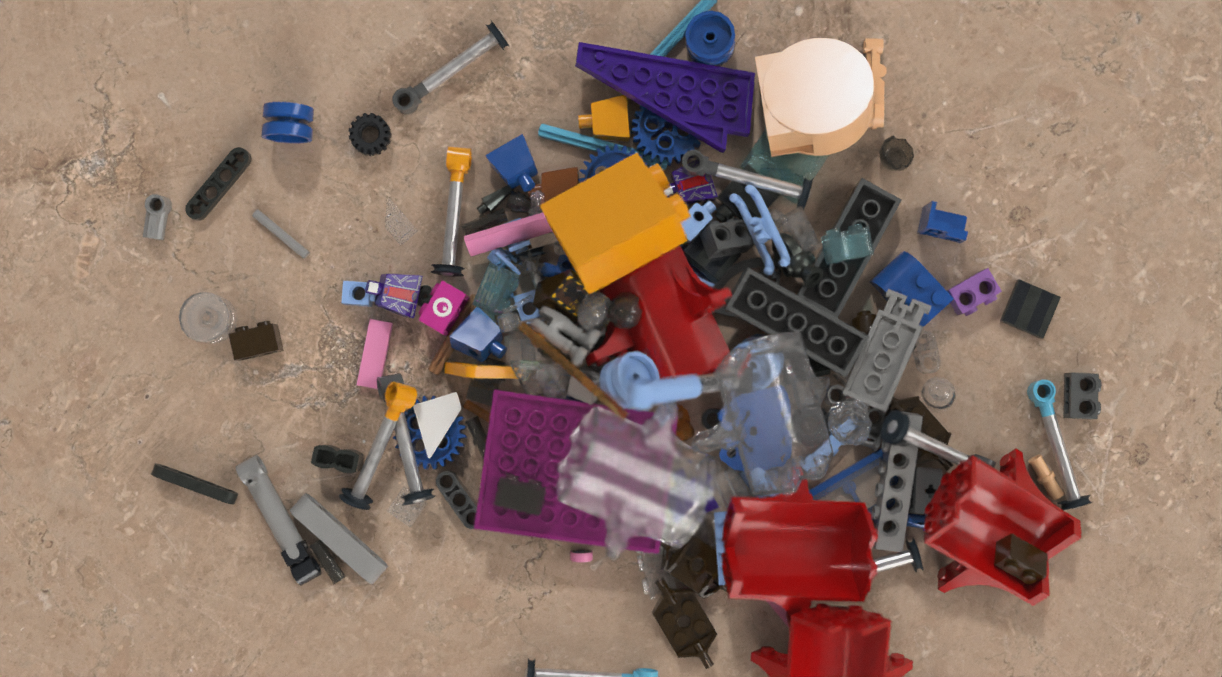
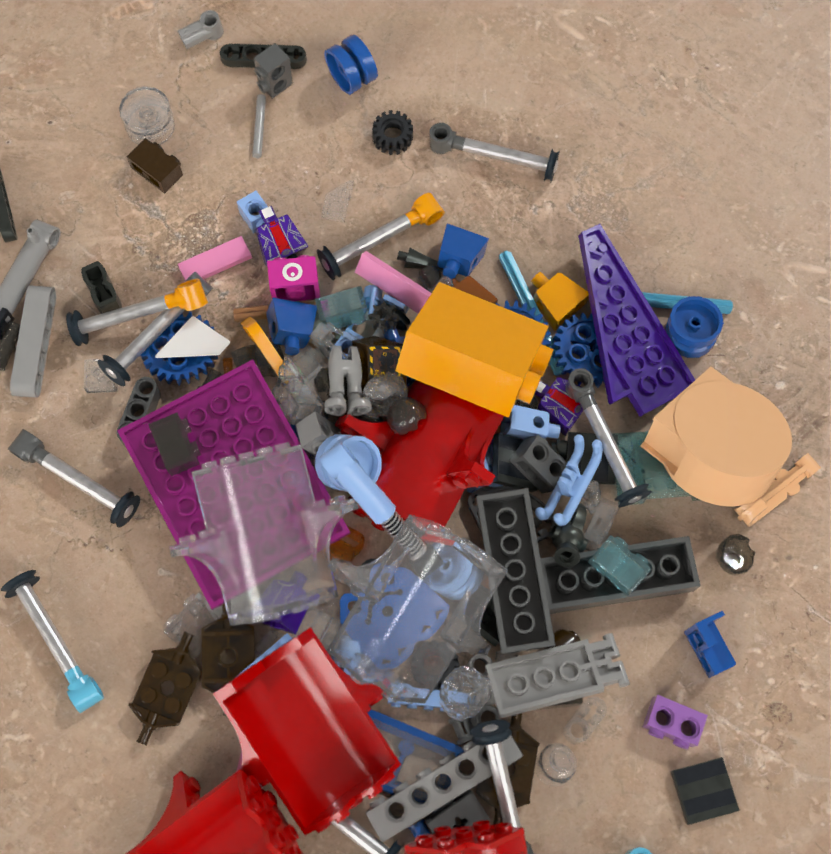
camera: 50 degrees right, 15 degrees down
(244, 189) = (273, 71): none -> dark grey brick
(428, 598) = (32, 450): none -> piece
(485, 222) = (394, 263): clear smoke pin -> none
(539, 341) = (323, 362): clear orange bar -> none
(581, 555) = (162, 550): bright pink tile -> none
(913, 280) = (640, 656): blue brick -> none

